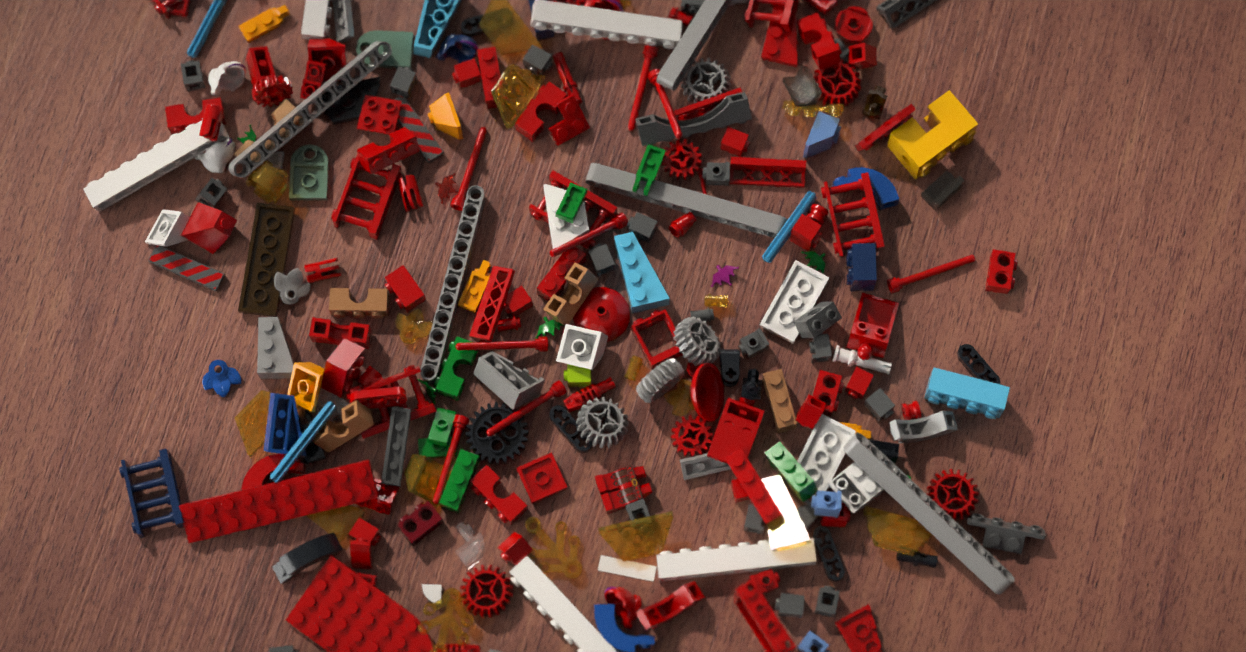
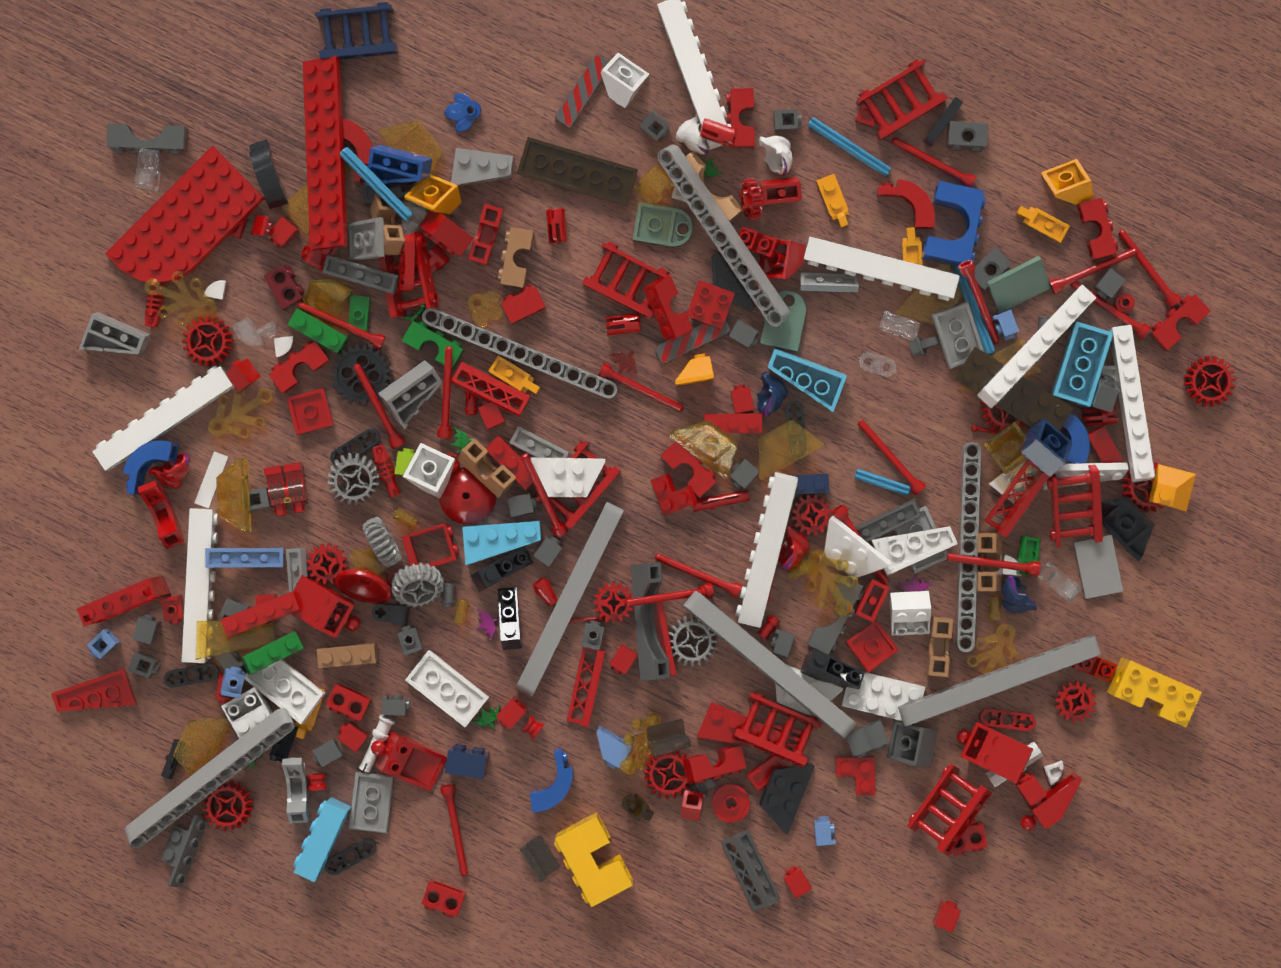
camera: 100 degrees right, 15 degrees up
(208, 227) = (617, 118): red slope -> none
(291, 283) = (547, 193): light grey plate -> none
(360, 441) = (366, 239): none -> light grey tile
(441, 427) = (376, 321): green plate -> none
(479, 517) = (283, 345): none -> white tile
(540, 256) = (536, 445): none -> light grey plate
(571, 203) = (575, 483): green plate -> none
(649, 168) = (605, 568): green hinge -> none
(669, 270) = (501, 569): none -> black slope
(699, 516) = (243, 557): none -> medium blue plate
(715, 253) = (509, 618): none -> black slope
(752, 385) = (365, 630): black hinge -> none
(785, 231) = (522, 697): dark azure axle -> none
(810, 412) = (326, 683): red brick -> none
(817, 319) = (420, 707): dark grey brick -> none
(866, 202) = (532, 779): red fence -> none
(886, 128) = (610, 817): red plate -> none
(919, 356) = (371, 802): none -> light grey tile

